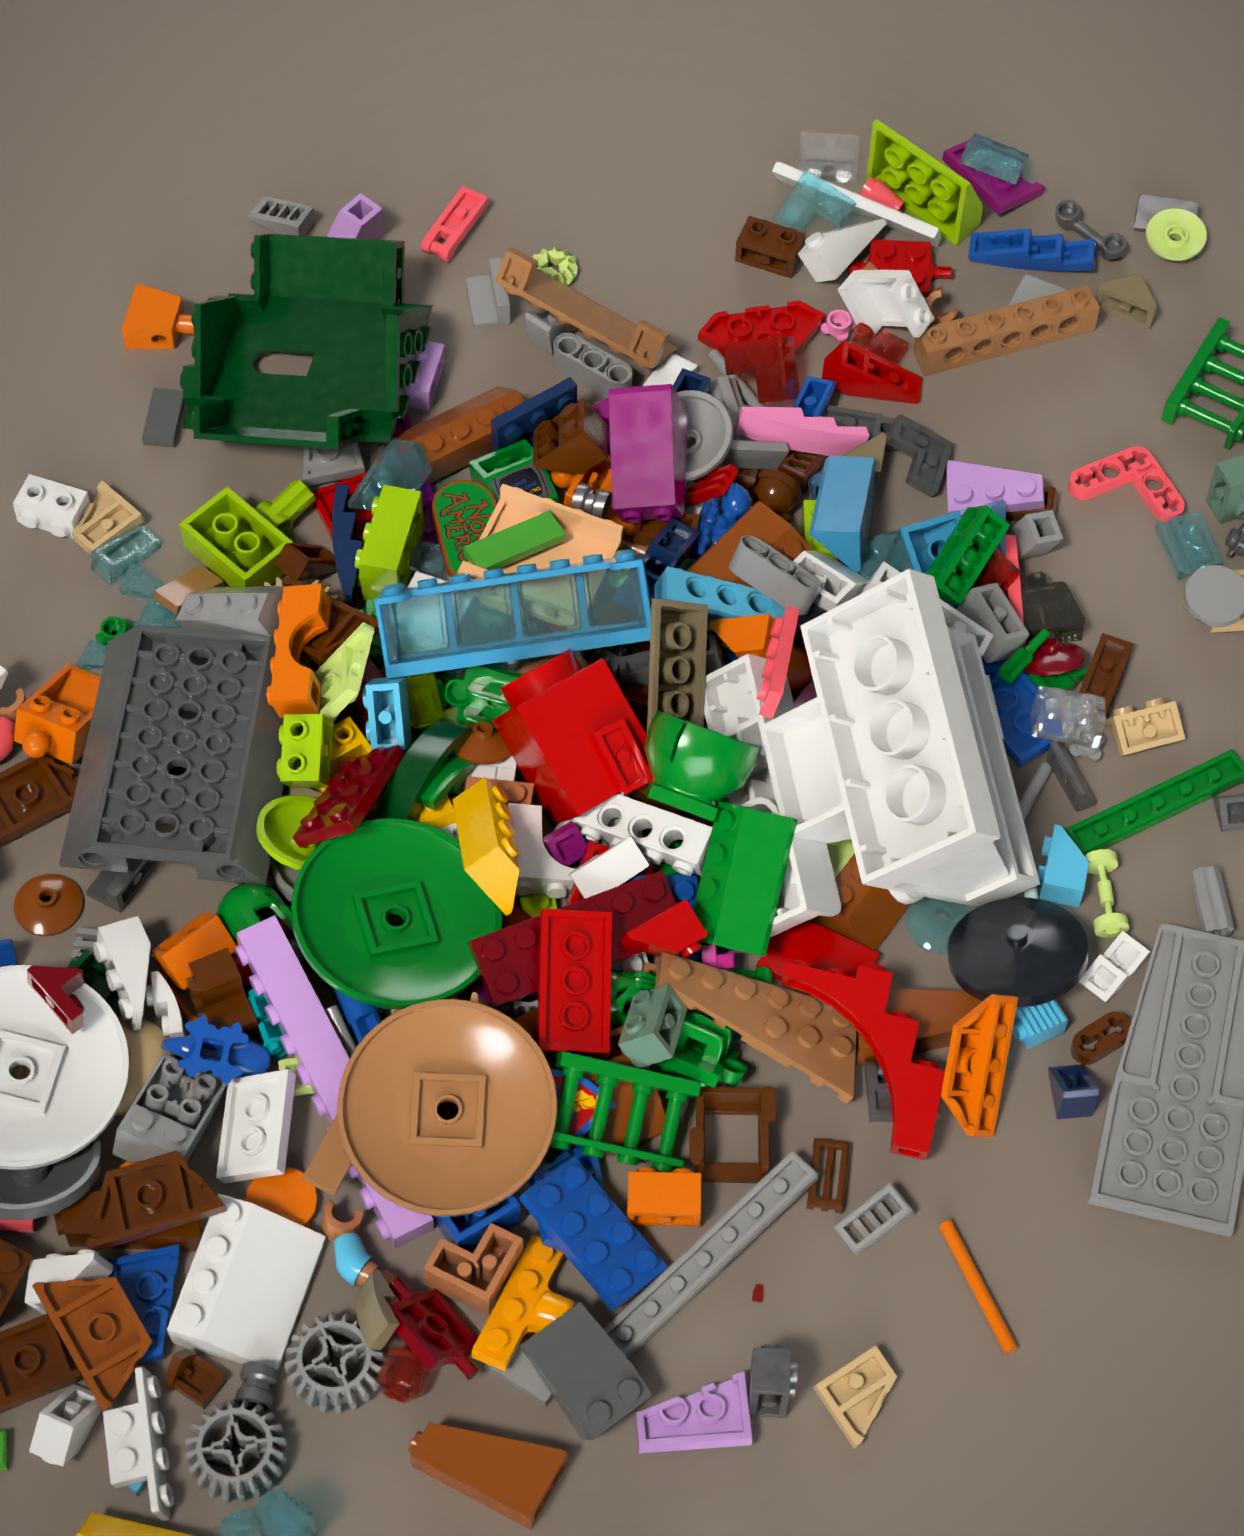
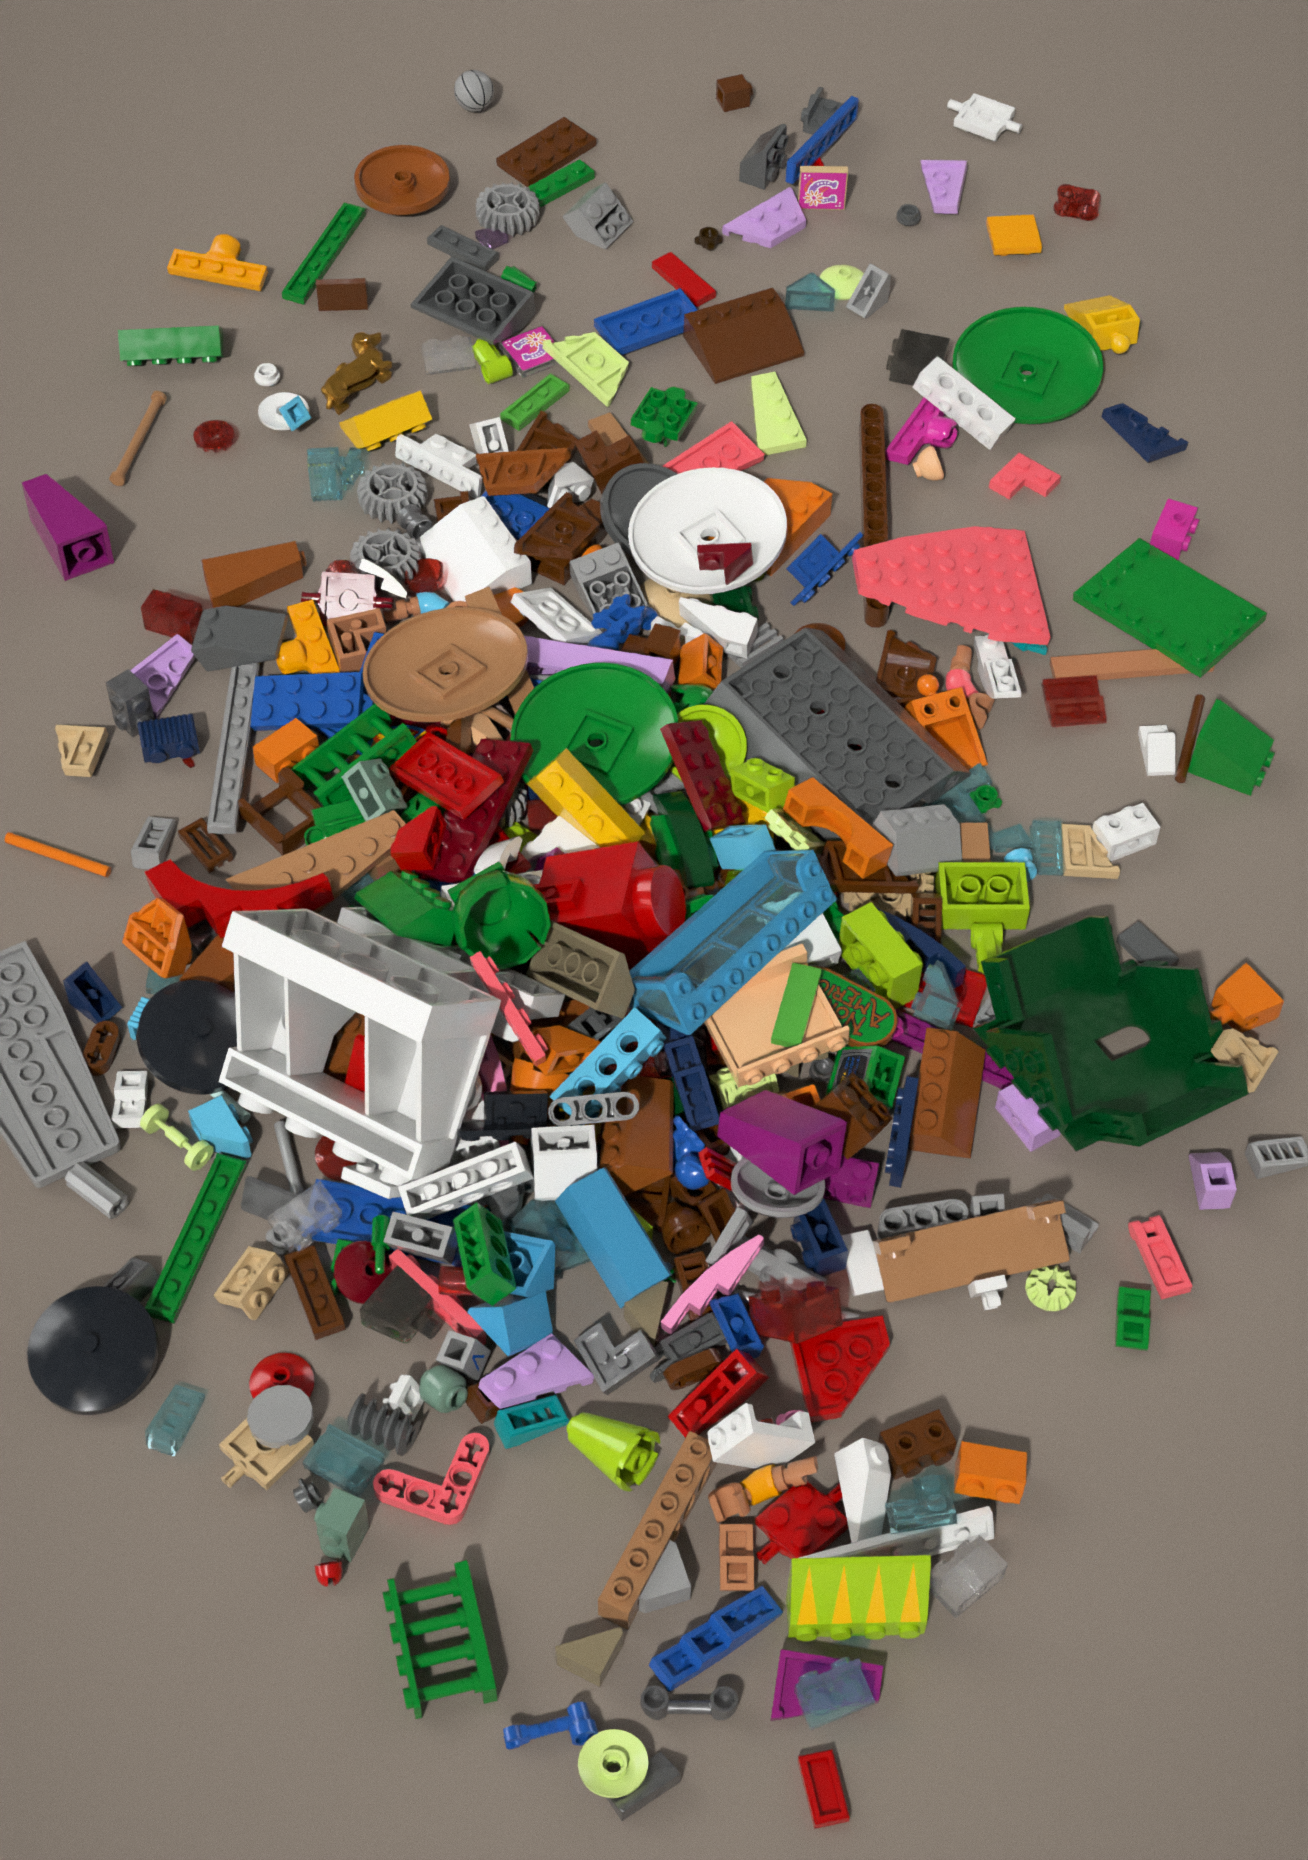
camera: 135 degrees right, 5 degrees down
(169, 550) = (1023, 855): none -> medium azure wheel
(218, 280) = (1237, 1049): none -> tan wing
(322, 1293) = (429, 576): none -> clear red hair
(529, 206) = (1132, 1318): none -> green slope
(591, 501) = (785, 1080): flat silver wheel -> none
(602, 290) = (988, 1290): none -> white tile
(621, 1480) = (171, 615): none -> clear red brick
(744, 189) = (990, 1472): none -> orange brick
(758, 1319) = (168, 738): none -> dark blue brick
(870, 402) = (692, 1369): none -> reddish brown beam
(969, 284) = (736, 1557): none -> nougat slope
(986, 394) = (615, 1447): none -> lime cone
(1036, 463) = (512, 1430): none -> teal slope
(1049, 136) = (823, 1789): none -> red tile
(1075, 532) = (443, 1389): none -> sand green head
(1104, 549) = (405, 1396): none -> white tile
(1140, 541) = (381, 1426): none -> dark grey piece
(1175, 275) = (576, 1722): none -> blue brick
(1182, 654) = (296, 1369): none -> red dish

